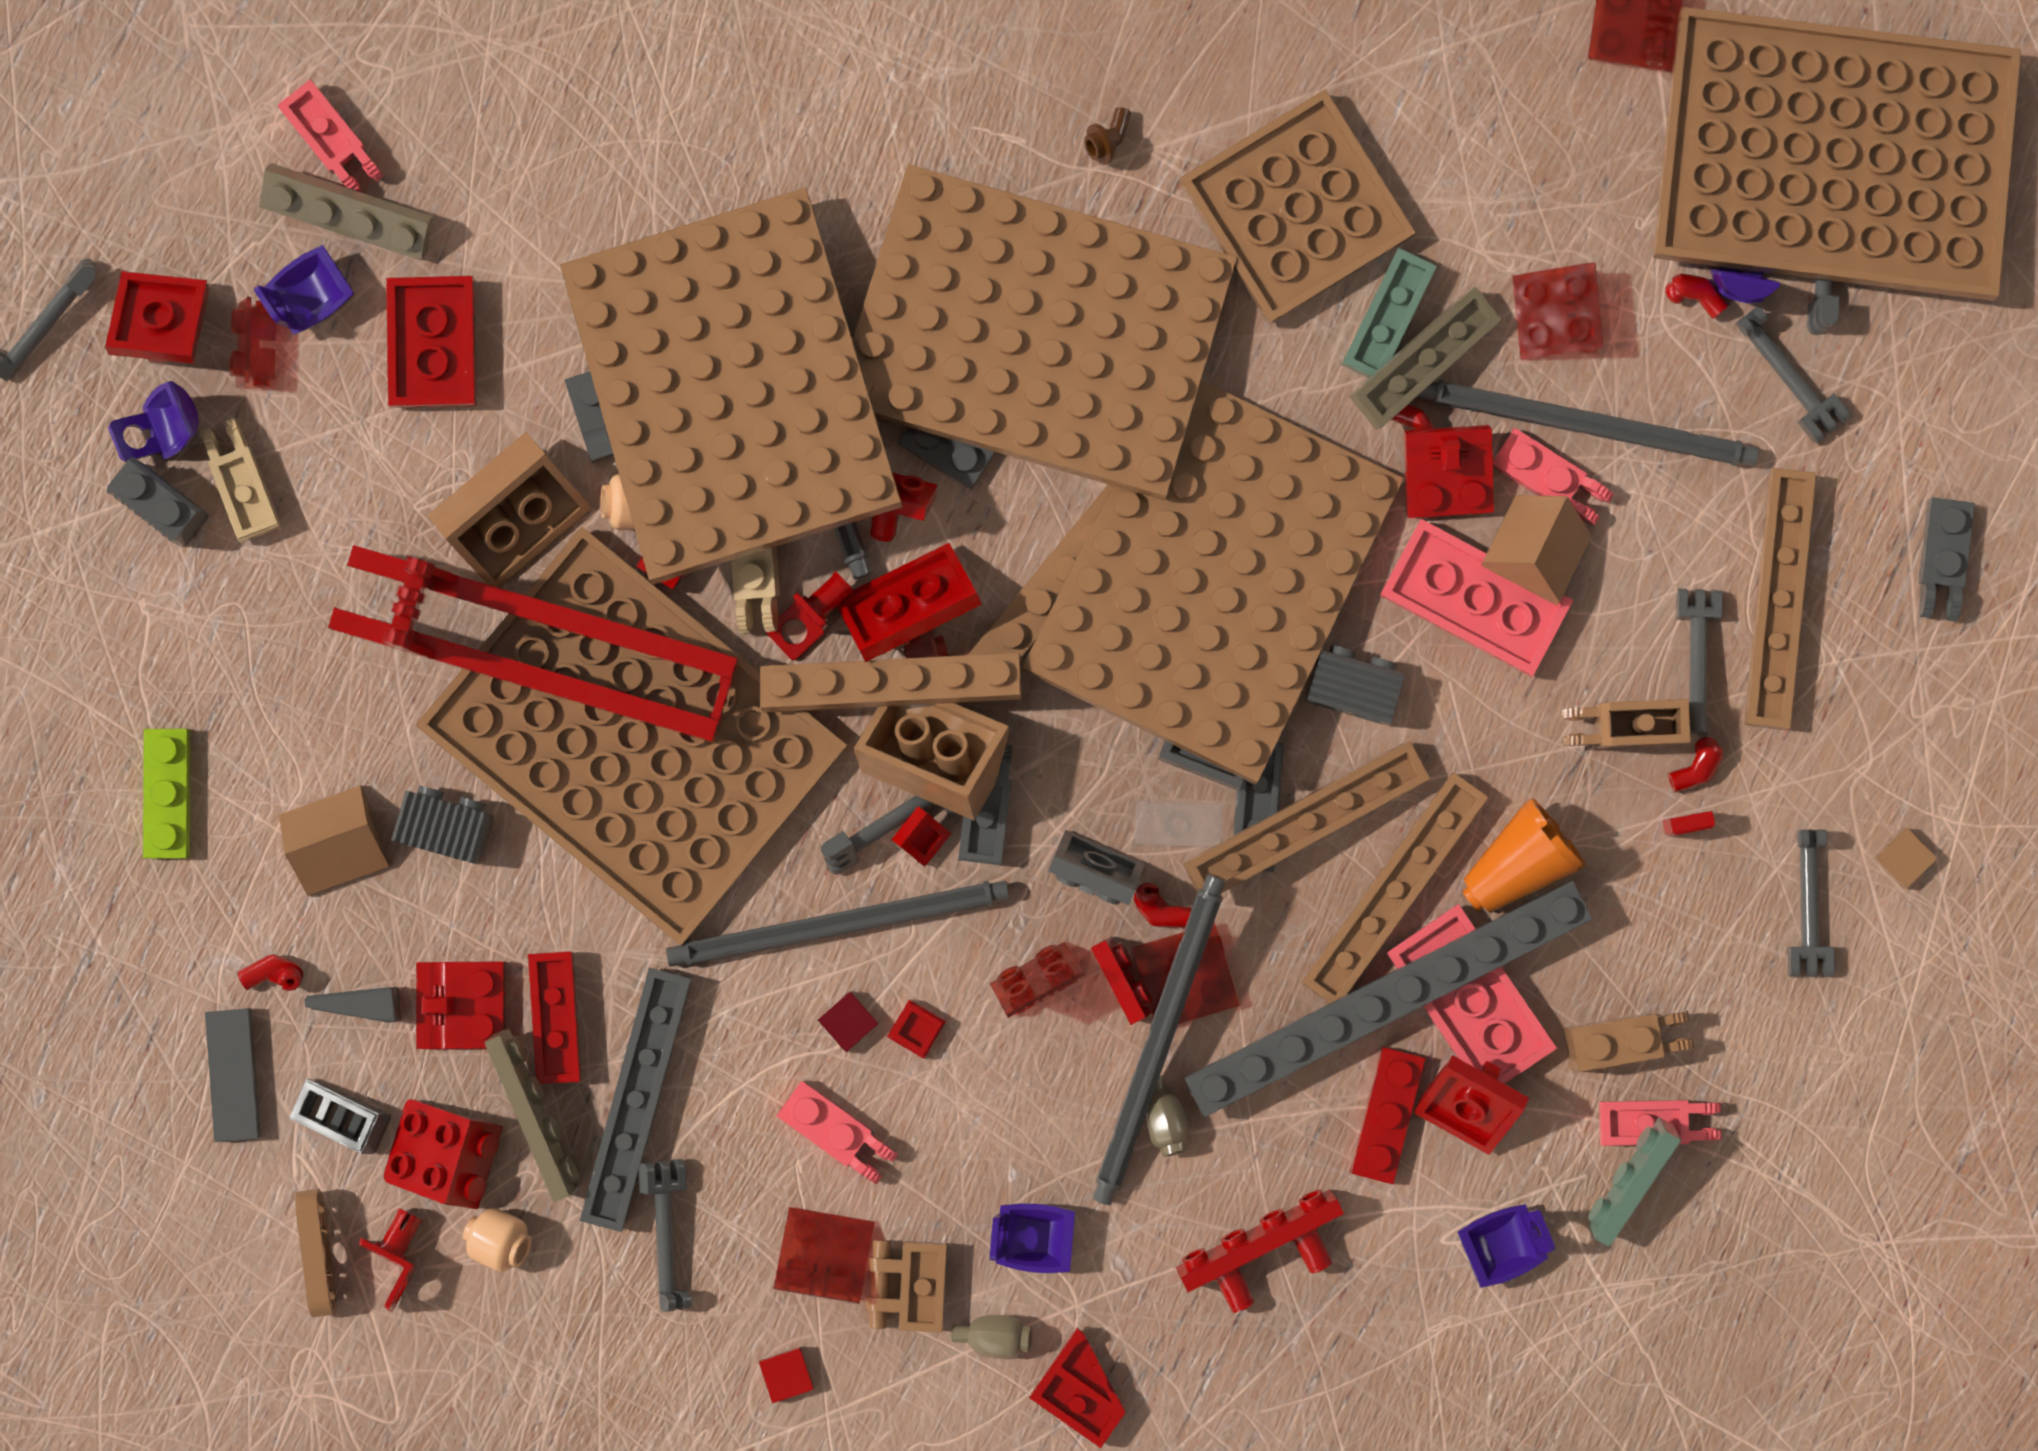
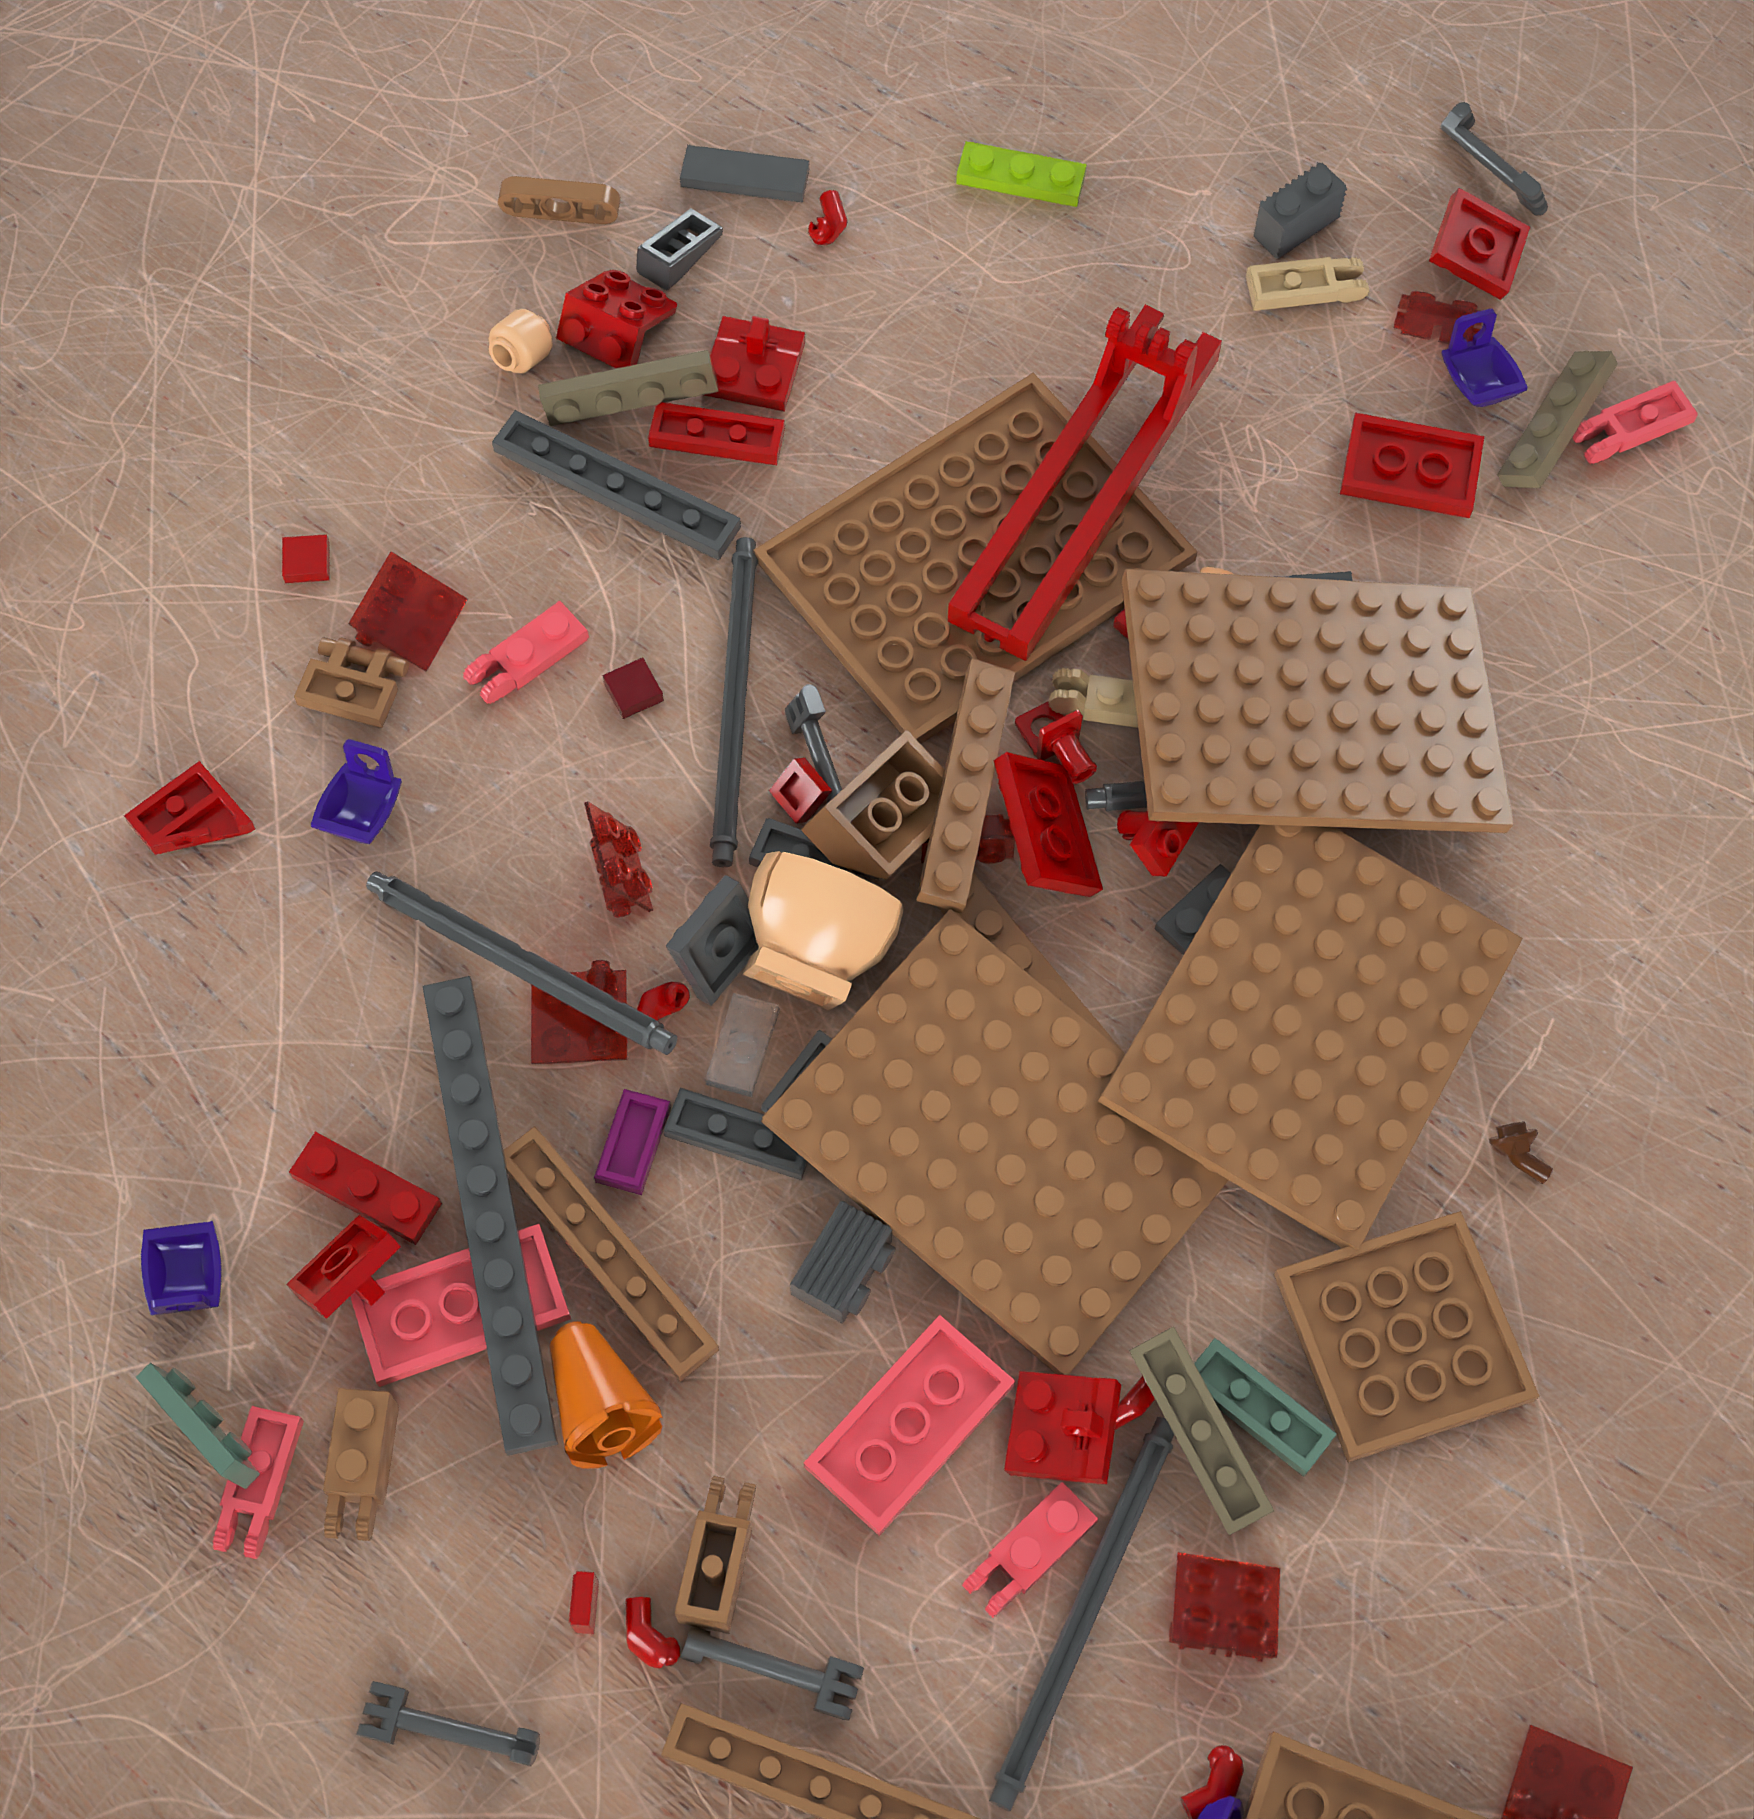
camera: 105 degrees right, 20 degrees down
(169, 418) = (1380, 237): dark purple piece -> none
(332, 841) = (940, 289): medium nougat slope -> none
(371, 1004) = (775, 286): dark grey slope -> none
(393, 1249) = (536, 257): red bracket -> none
(443, 826) = (928, 377): dark grey brick -> none
(509, 511) = (1226, 494): medium nougat slope -> none
(662, 1181) = (417, 474): dark grey hinge -> none
(916, 1029) = (606, 748): red tile -> none
(995, 1336) = (272, 749): dark tan plant -> none
(1077, 777) = (817, 927): none -> light nougat plate
(1131, 995) = (610, 941): red plate -> none
(1167, 1122) = (435, 959): dark tan plant -> none
(1241, 1247) = (281, 1034): red plate -> none
(1288, 897) = (632, 1142): none -> magenta tile
(1310, 818) = (709, 1177): medium nougat plate -> none
(1539, 545) = (951, 1509): medium nougat slope -> none

